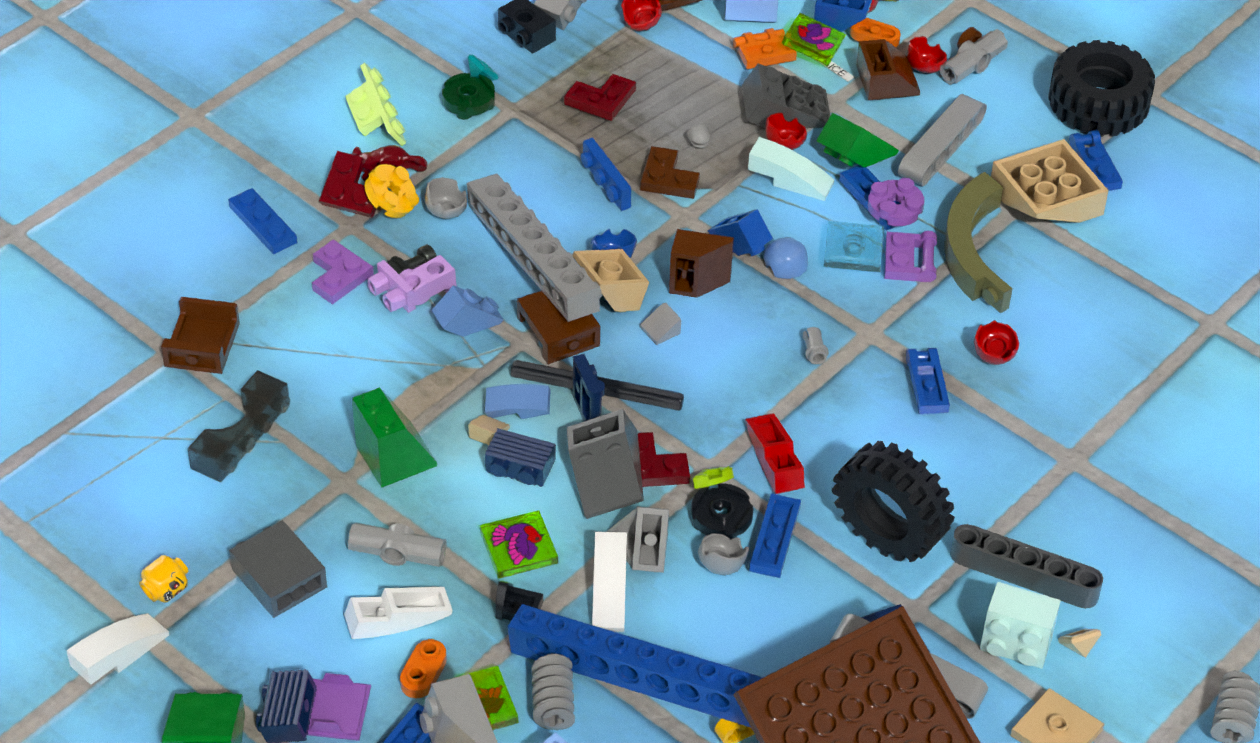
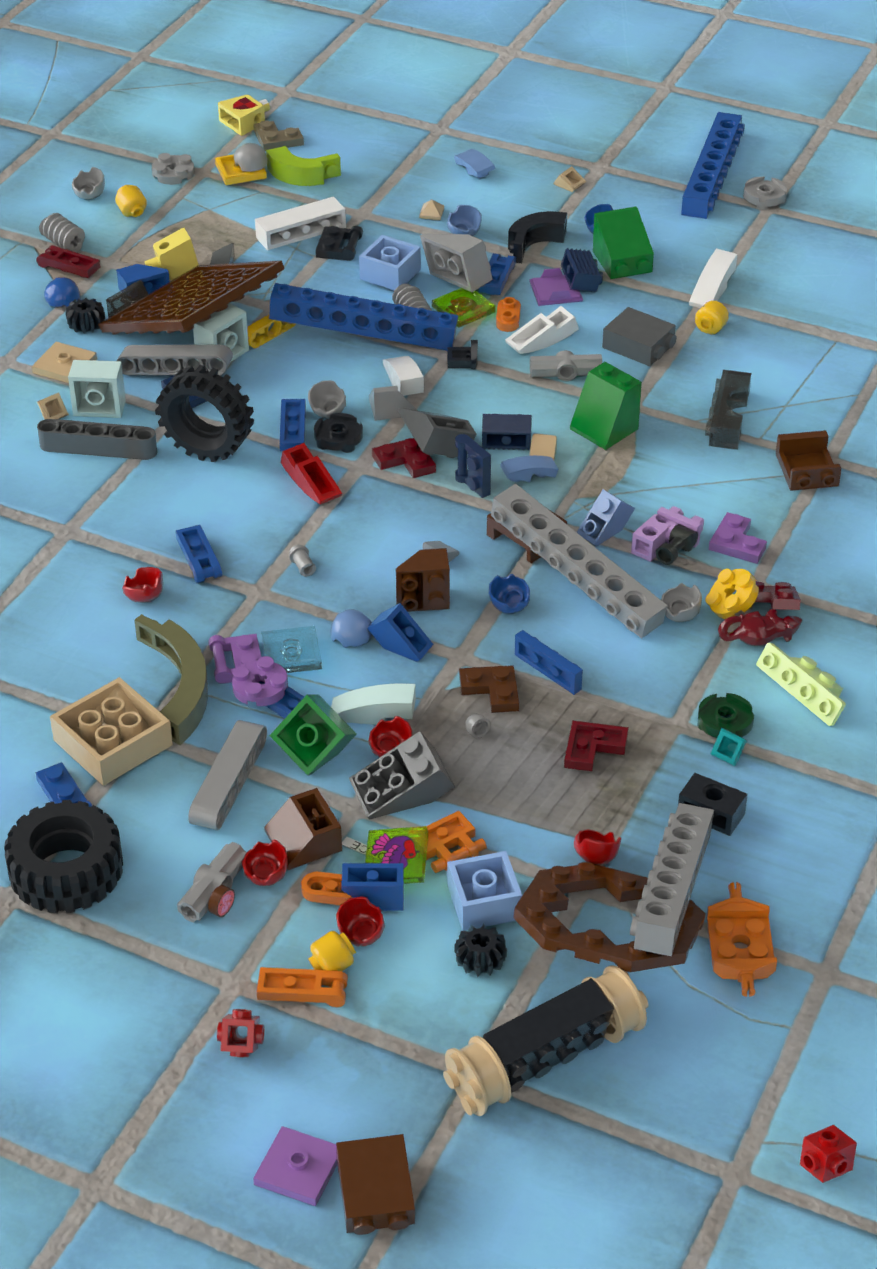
camera: 165 degrees right, 5 degrees down
(262, 221) = (832, 565): blue plate -> none
(518, 544) = (480, 389): clear neon green tile -> none
(613, 388) = (460, 497): black axle -> none
(617, 276) = (497, 548): tan slope -> none
(712, 476) = (353, 446): lime tile -> none

